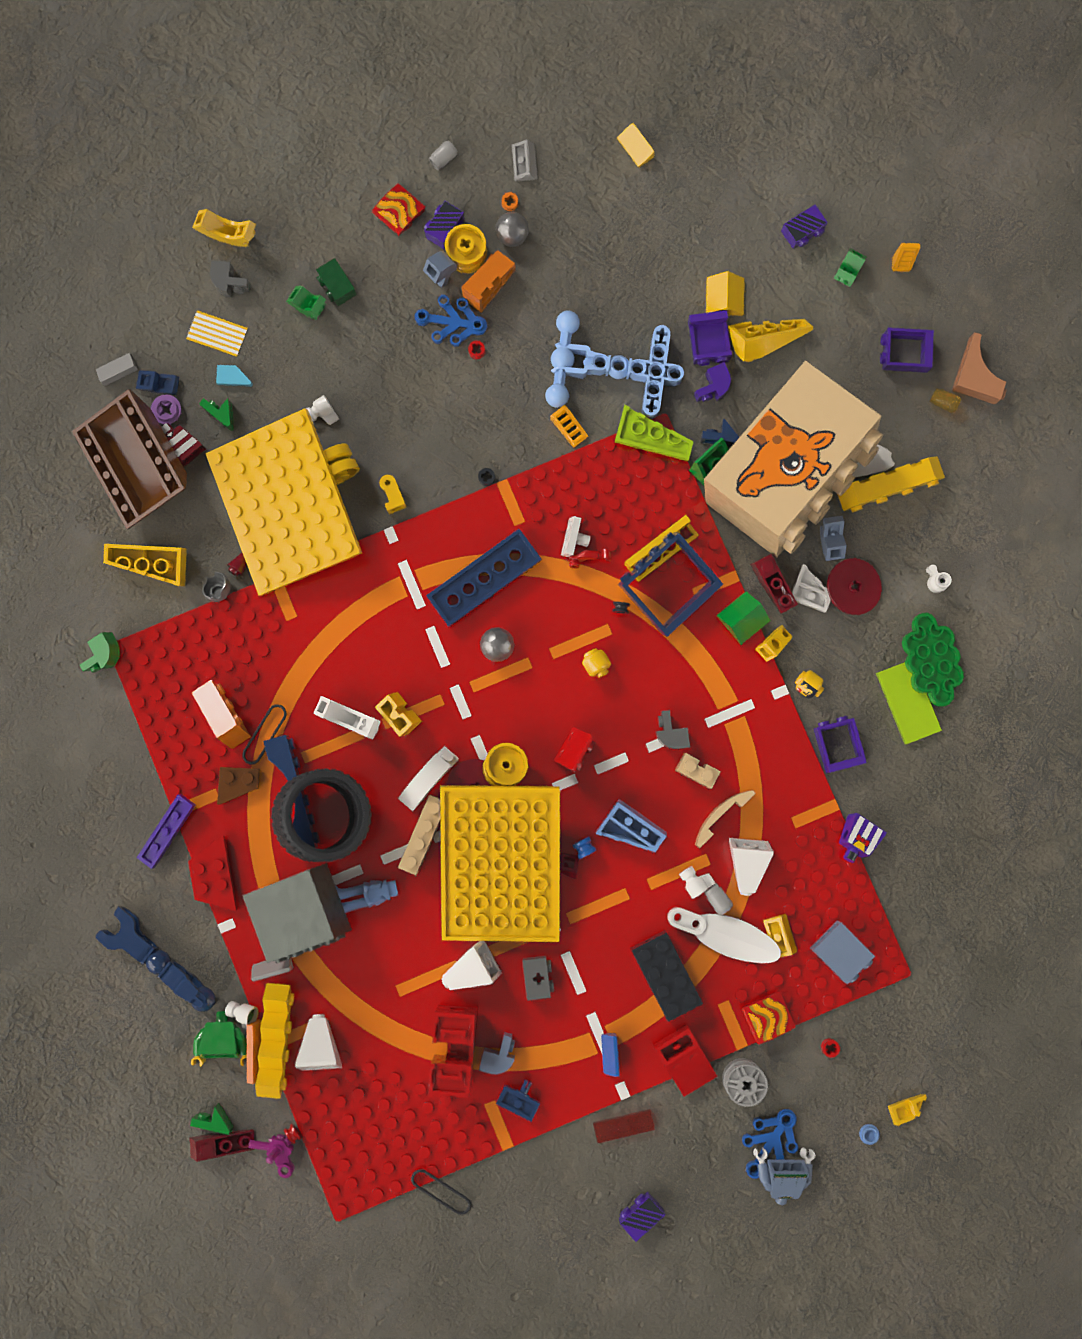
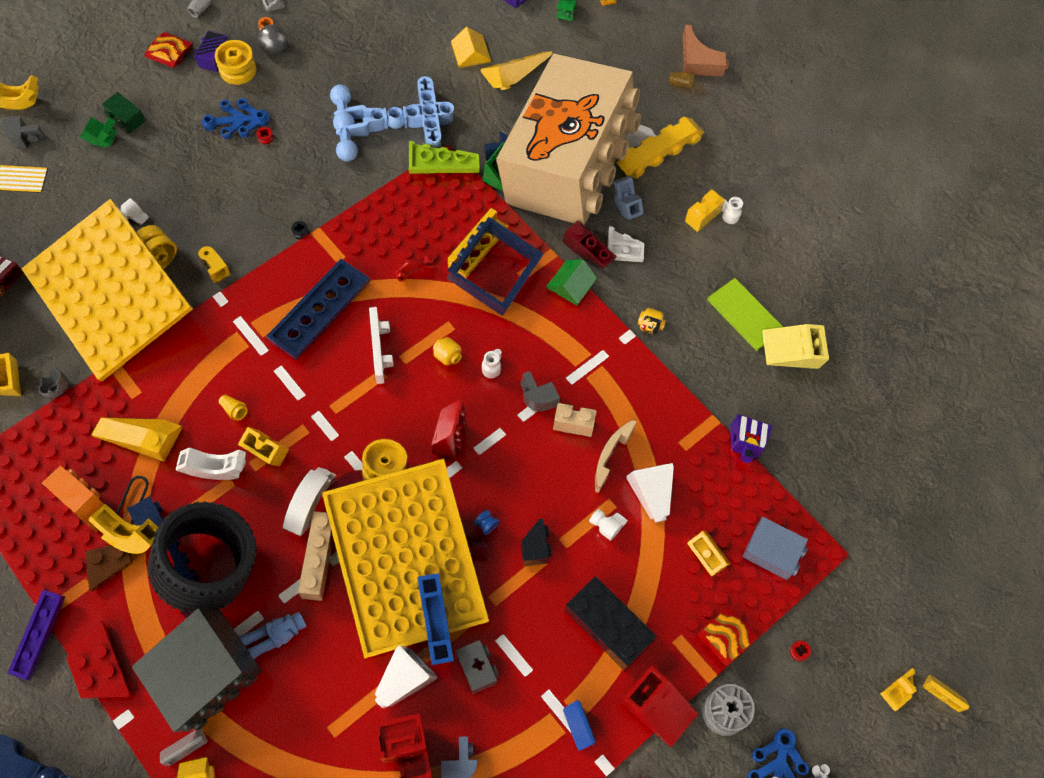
camera: 25 degrees left, 20 degrees down
(223, 414) = (33, 237): green slope -> none
(231, 376) = (38, 206): medium azure tile -> none
(237, 565) = (71, 361): dark red cone -> none
(266, 773) = (122, 534): none -> yellow arch
(292, 666) = (143, 436): none -> yellow wedge
(379, 662) = (233, 407): none -> yellow cone
(439, 268) = (215, 77): sand blue brick -> none
(488, 280) = (260, 81): orange wedge -> none
(497, 644) = (346, 359): flat silver piece -> none
(511, 930) = (435, 619): none -> blue arch
(534, 617) = (380, 361): none -> white hinge
(569, 416) = (356, 164): light orange slope -> none
(573, 537) = (394, 254): white tile -> none
(621, 607) = (456, 300): black bush -> none
(621, 883) = (534, 545): none -> black slope
(631, 827) = (527, 487): medium blue wedge -> none
(635, 689) = (491, 365): none -> white piece
(709, 338) = (467, 80): dark purple panel -> none
(718, 899) = (636, 533): light grey piece -> none
(719, 383) = (484, 111): dark purple brick -> none
(728, 936) = (657, 567): white plant -> none
(774, 643) = (606, 295): yellow leg -> none
(856, 742) = (720, 369): dark purple window -> none
(857, 600) = (649, 230): dark red piece -> none
(869, 1134) = (874, 728): medium blue plate -> none
(916, 570) = (702, 213): none -> yellow brick
(926, 356) = (632, 41): dark purple window -> none
(932, 659) = (753, 273): green plate -> none
(943, 756) = (796, 346): none -> light yellow slope
(946, 1124) = (945, 694): none -> yellow slope

